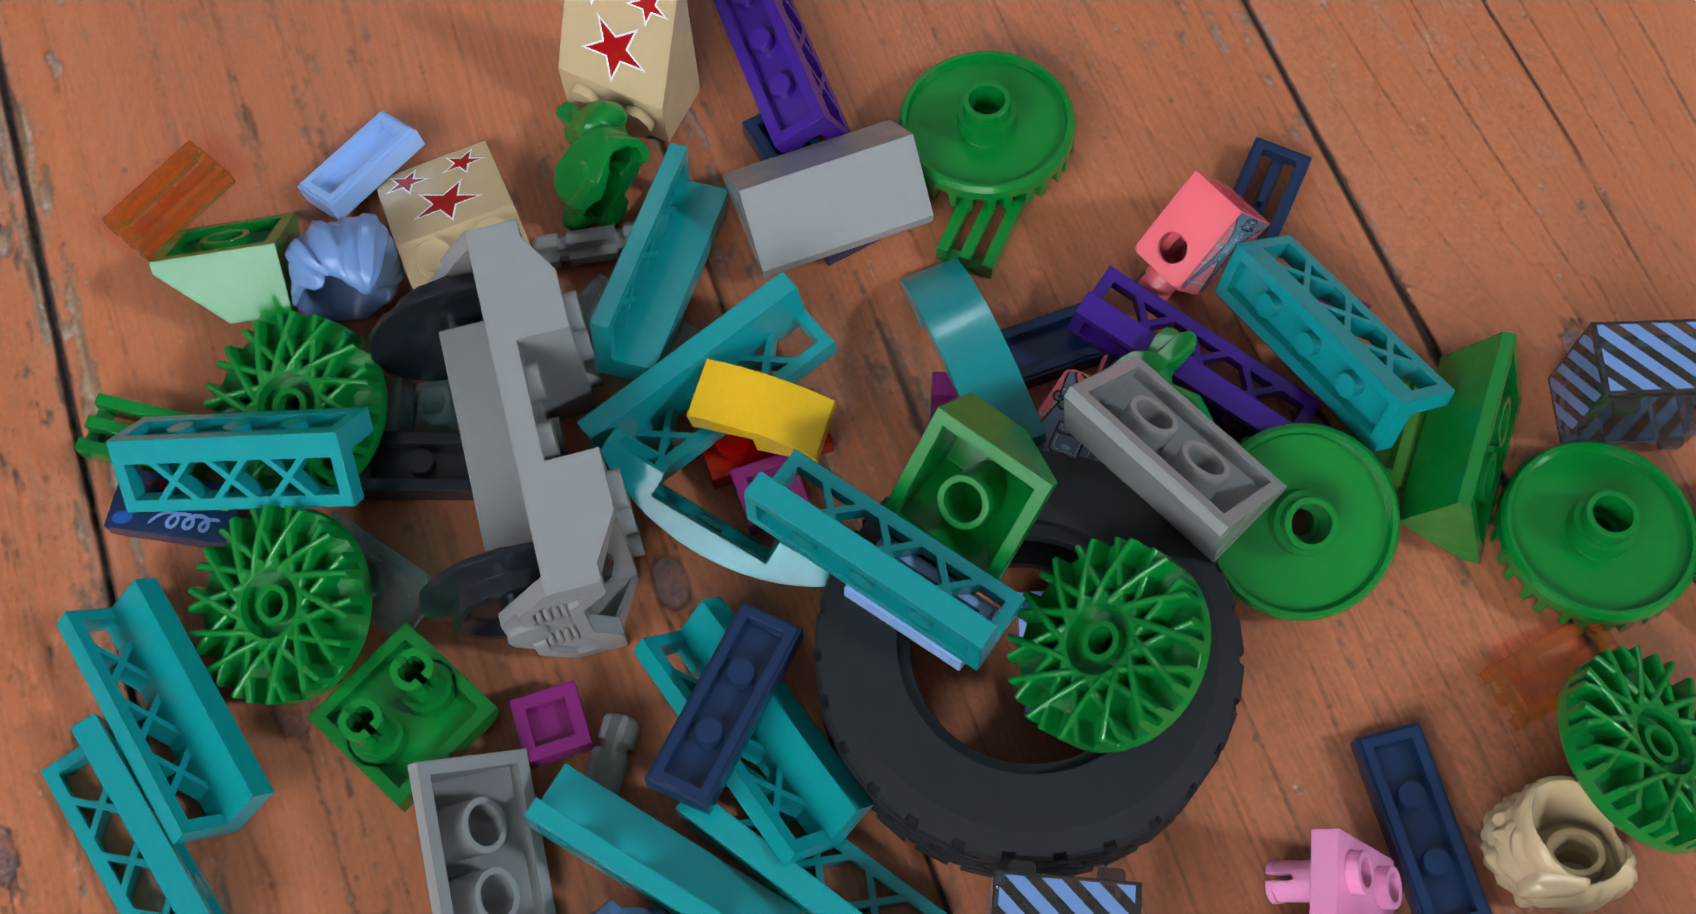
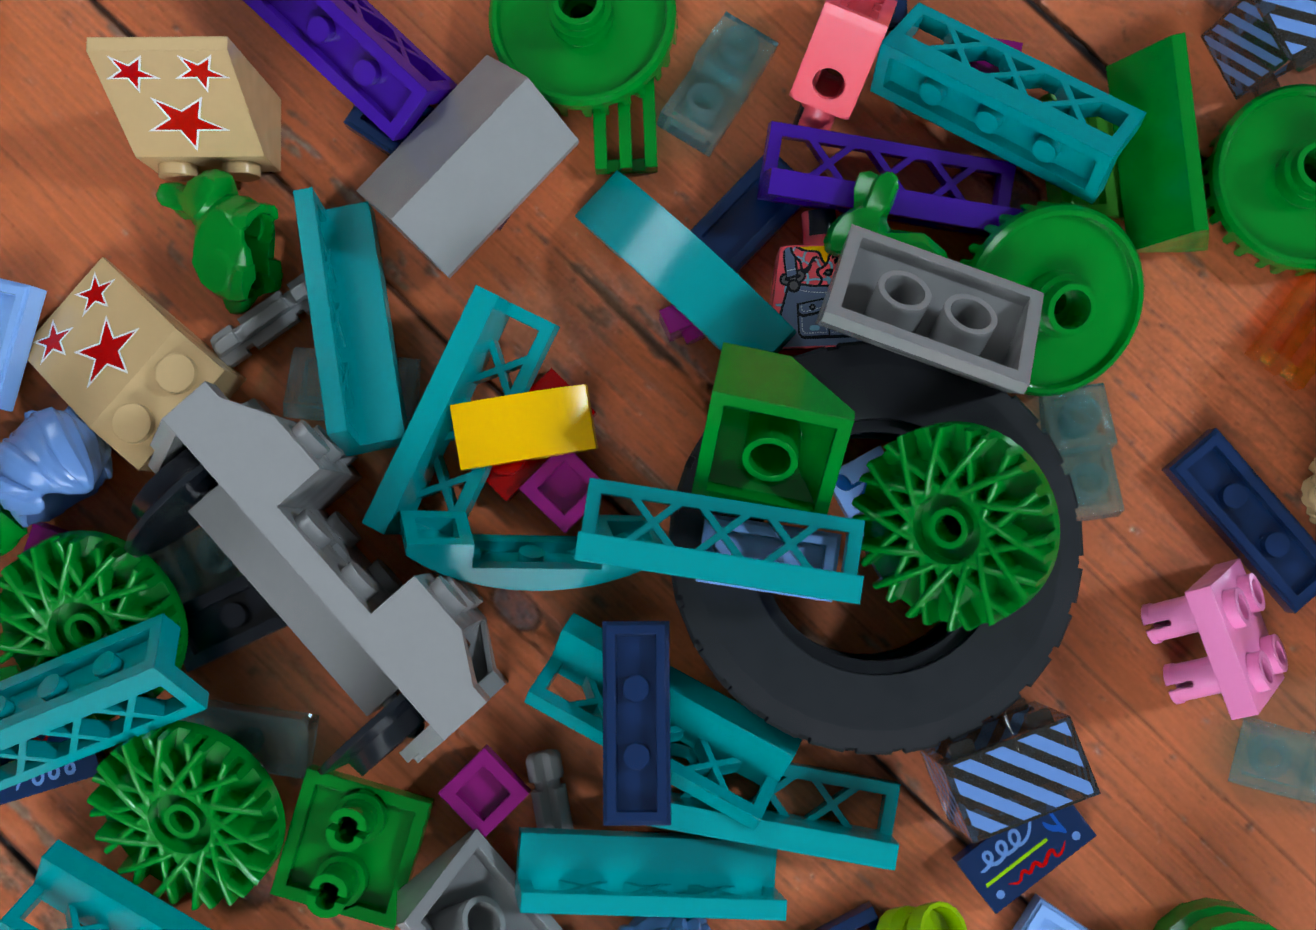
camera: 30 degrees left, 20 degrees up
(1080, 230) = (717, 84): none -> clear light blue slope
(1275, 680) = (1084, 437): none -> clear light blue slope

